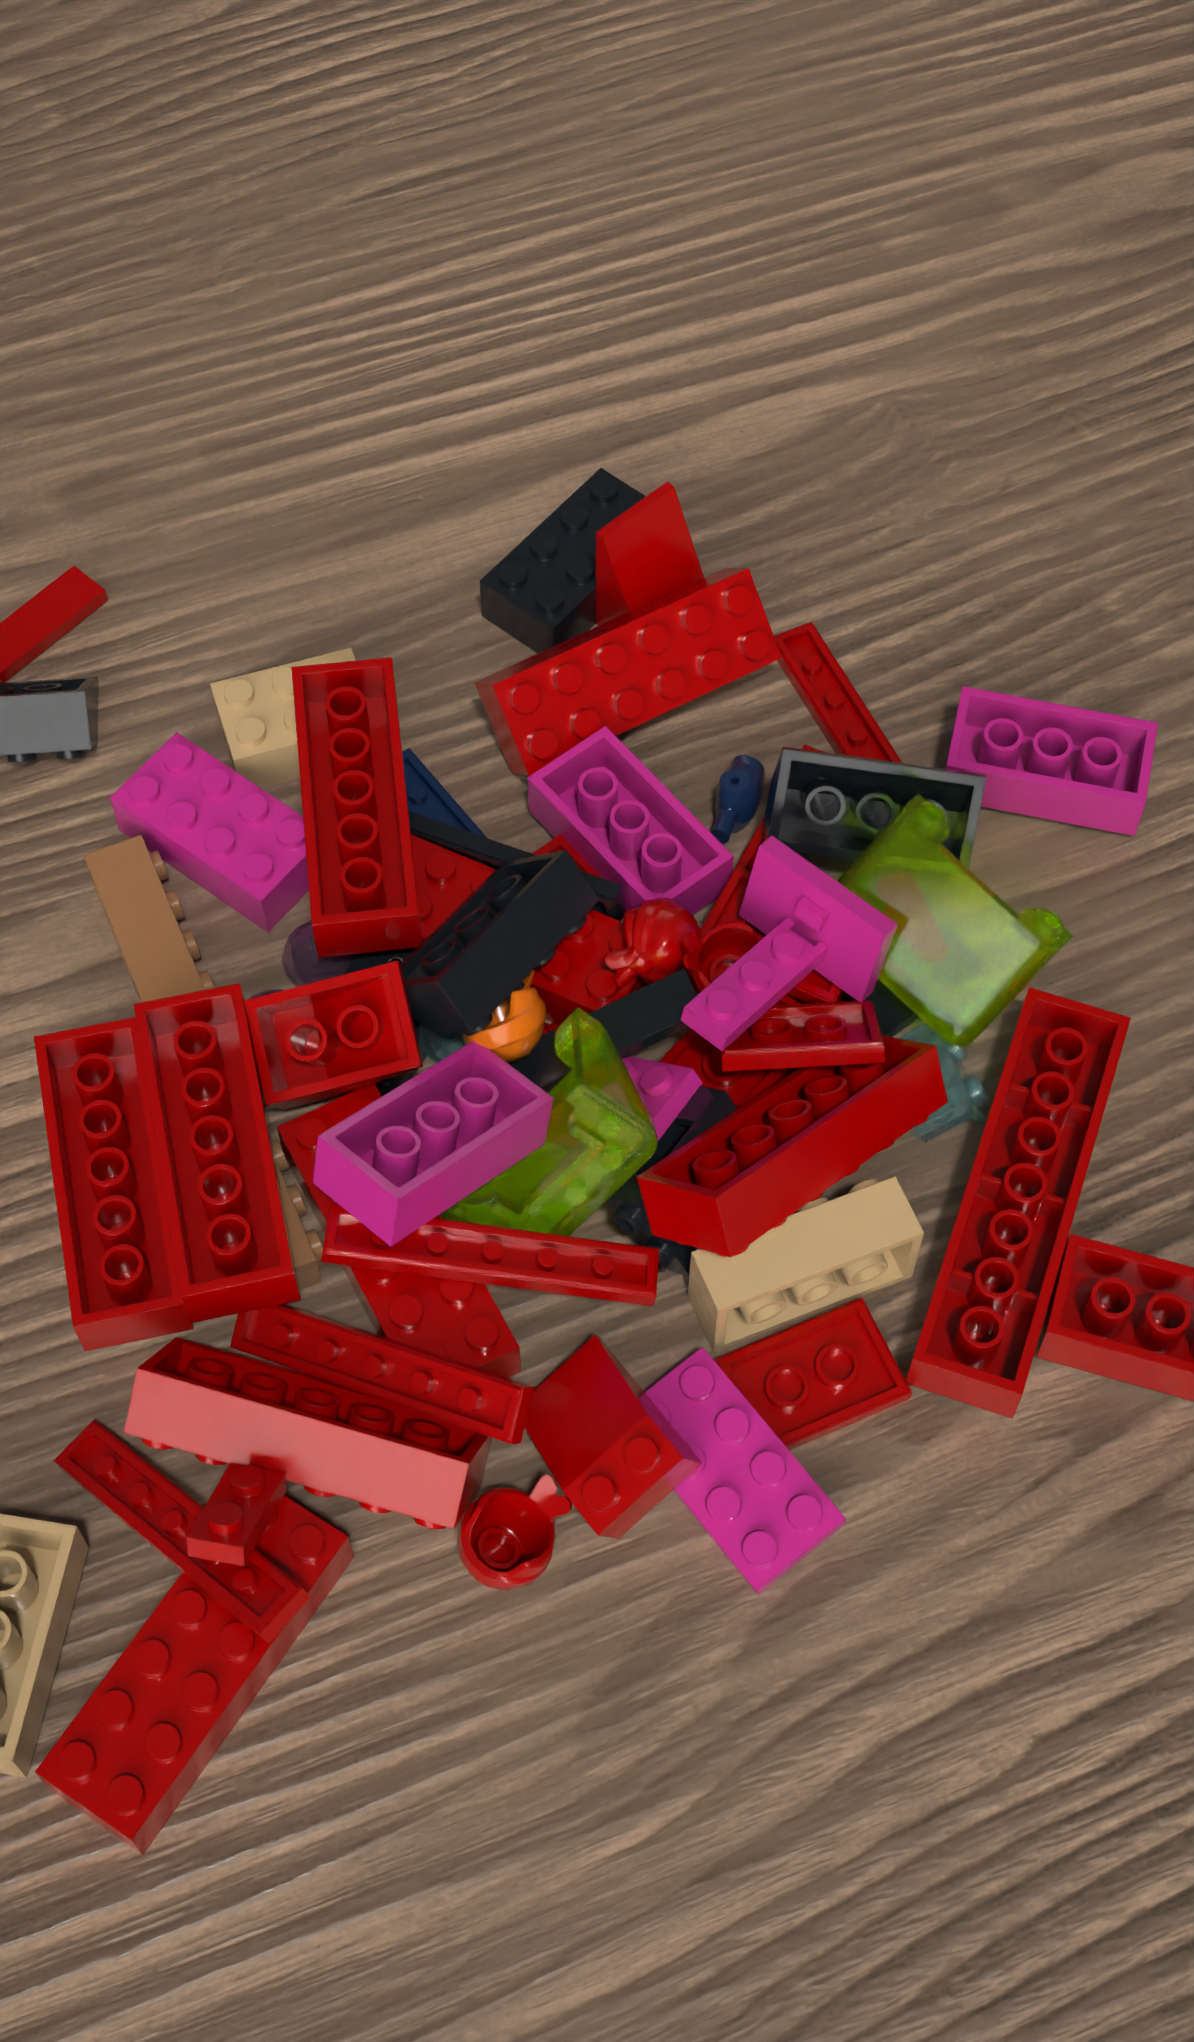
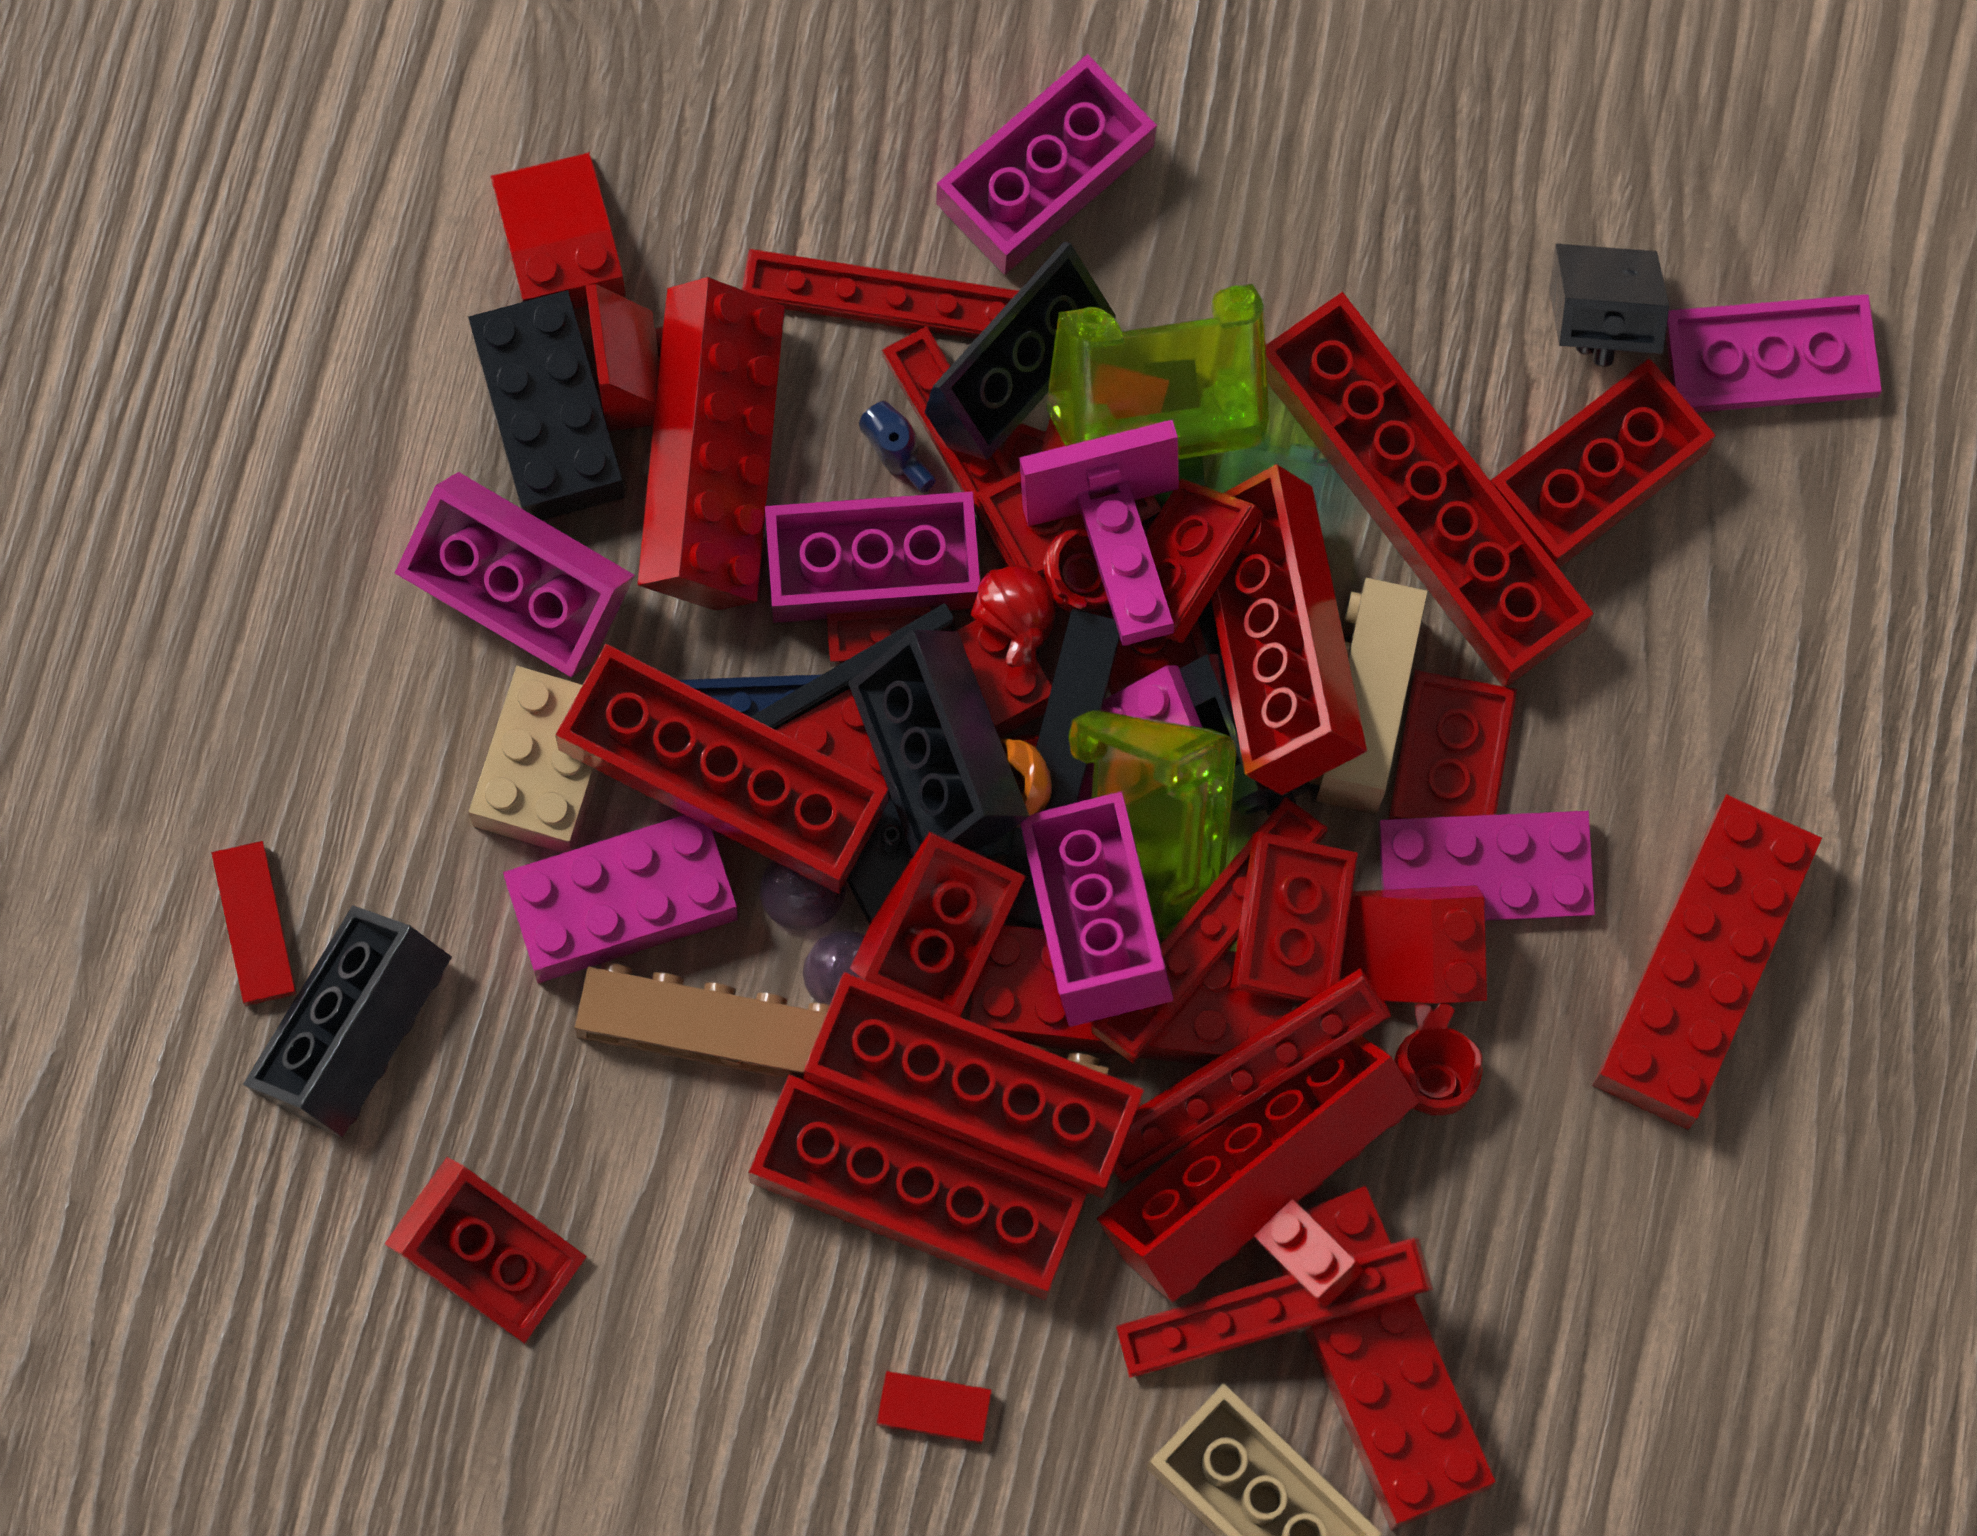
camera: 60 degrees left, 15 degrees up
(426, 605) = (514, 574): none -> dark pink brick
(549, 1313) = (1293, 918): none -> red tile
(725, 500) = (558, 229): none -> red slope
(785, 1720) = (1707, 962): none -> red brick

